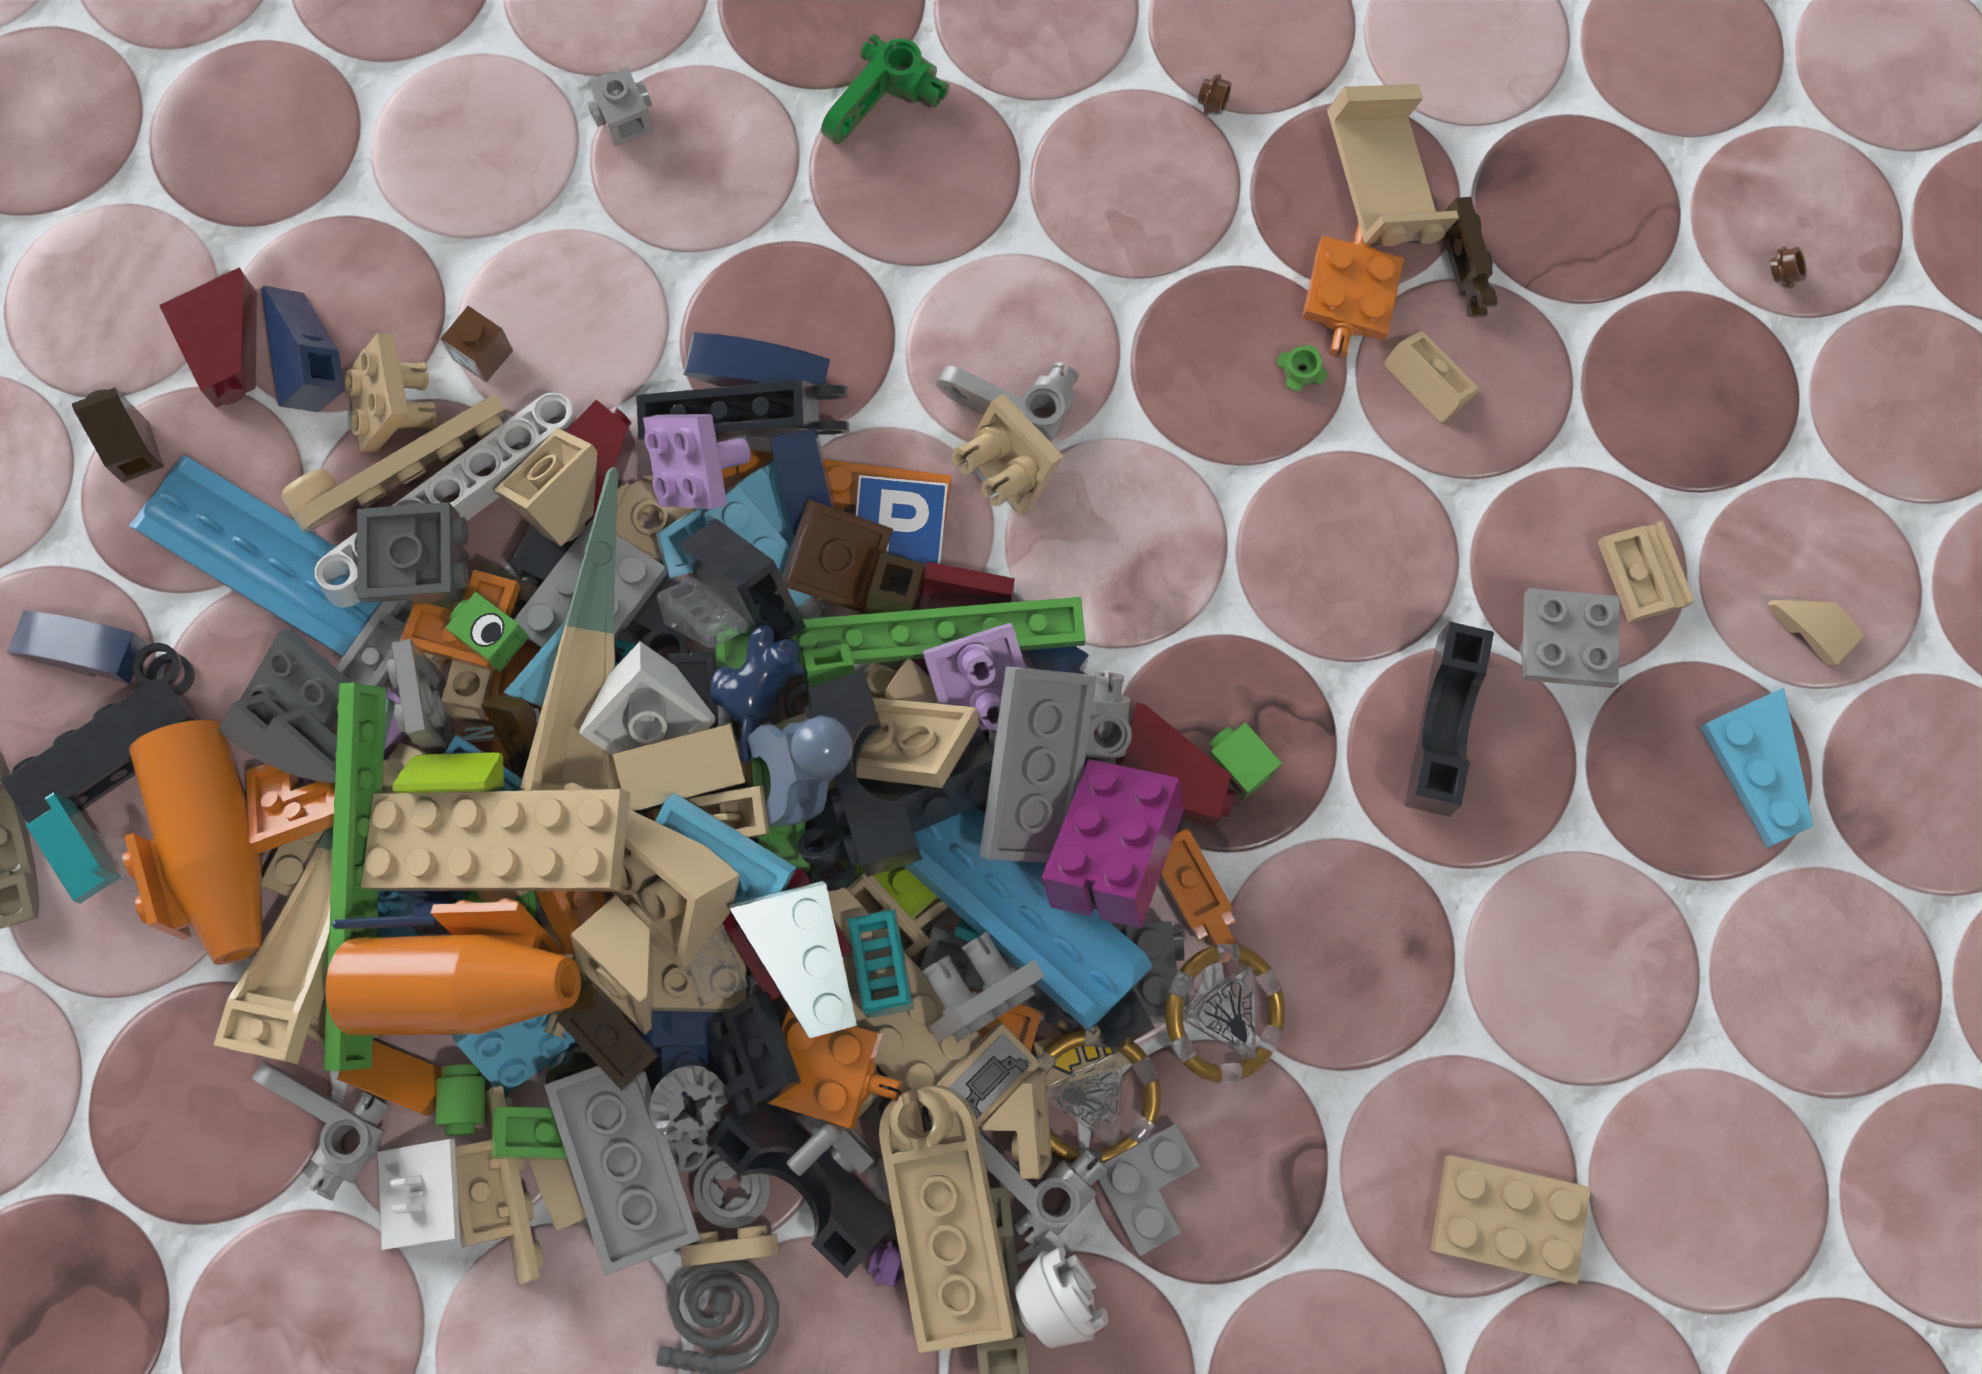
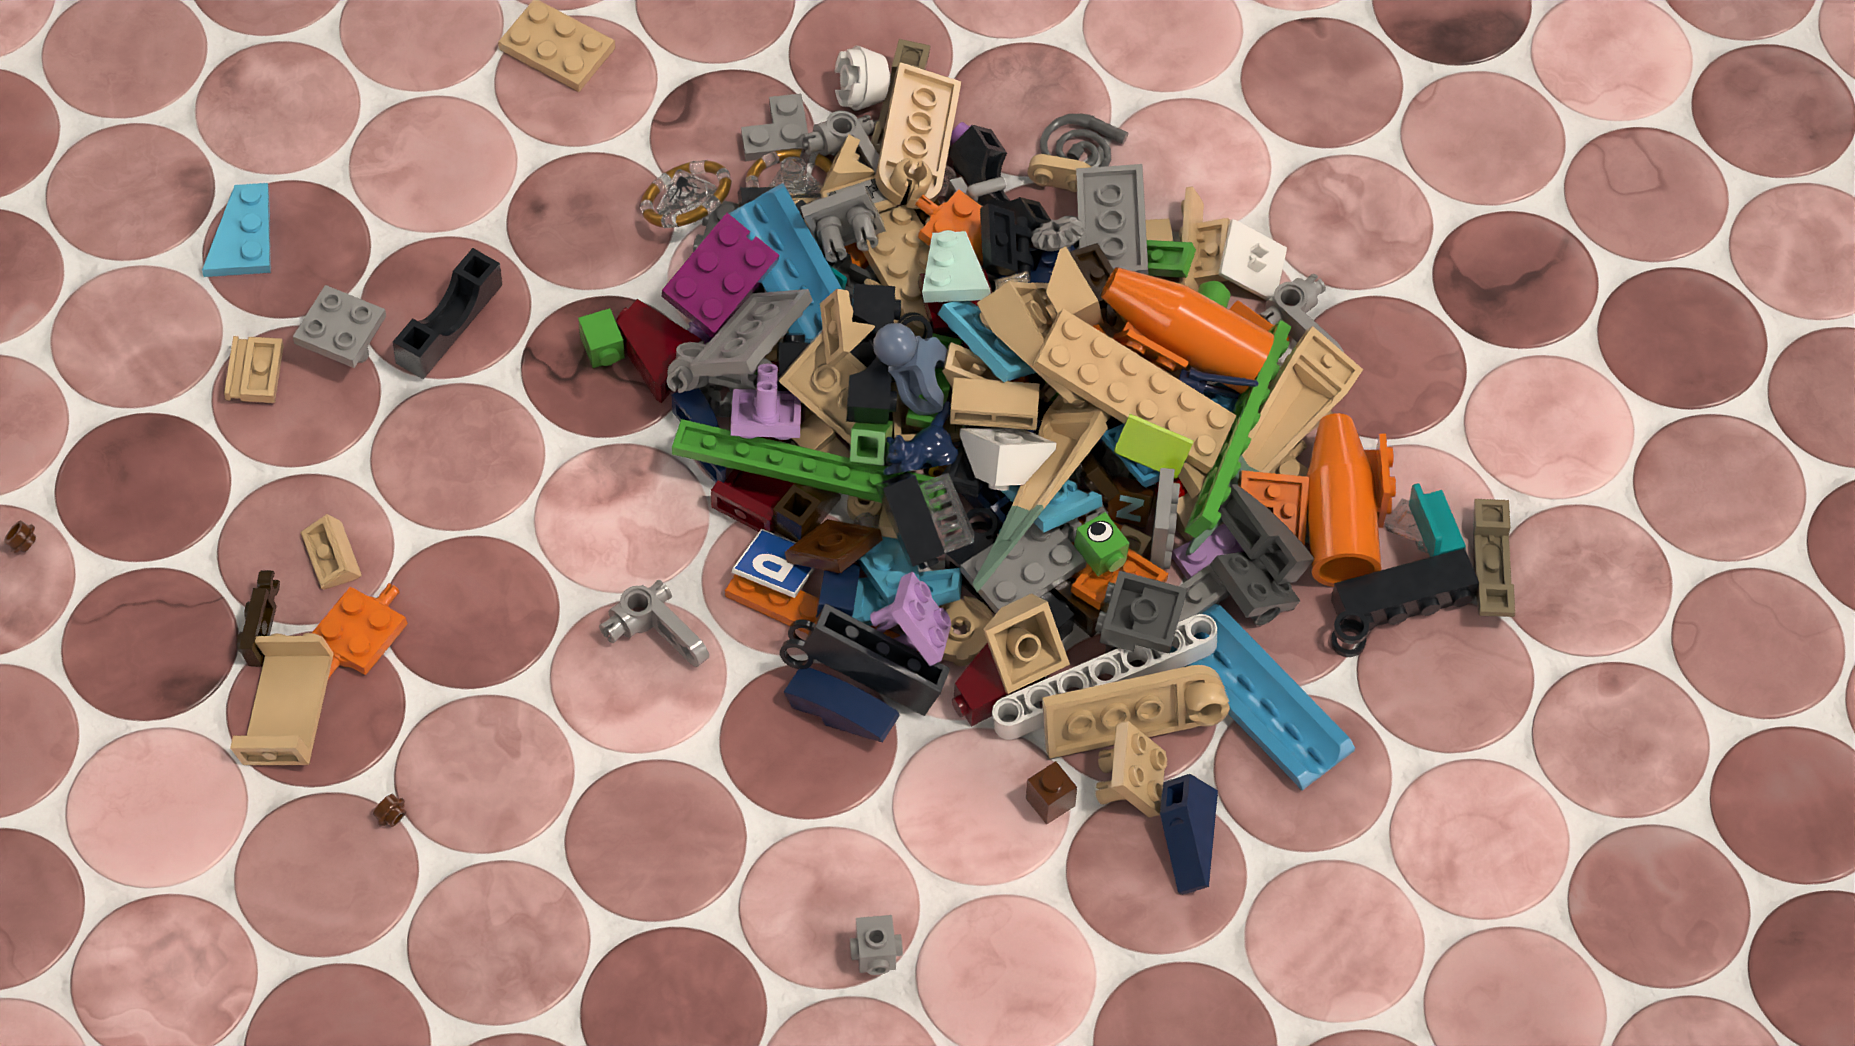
camera: 160 degrees left, 15 degrees down
(76, 645) = (1411, 671): slope -> none
(118, 434) = (1343, 805): dark brown slope -> none
(218, 335) = (1255, 867): dark red slope -> none
(710, 1196) = (1053, 196): light grey gear -> none
(881, 77) = (658, 907): green piece -> none
(890, 1005) = (909, 245): teal slope -> none
(906, 766) = (839, 331): none -> tan slope
(1010, 456) = (675, 572): tan plate -> none
(1197, 891) = (665, 265): orange hinge -> none
(1308, 357) = (426, 577): bright green plate -> none
(1822, 625) = (152, 299): tan slope -> none

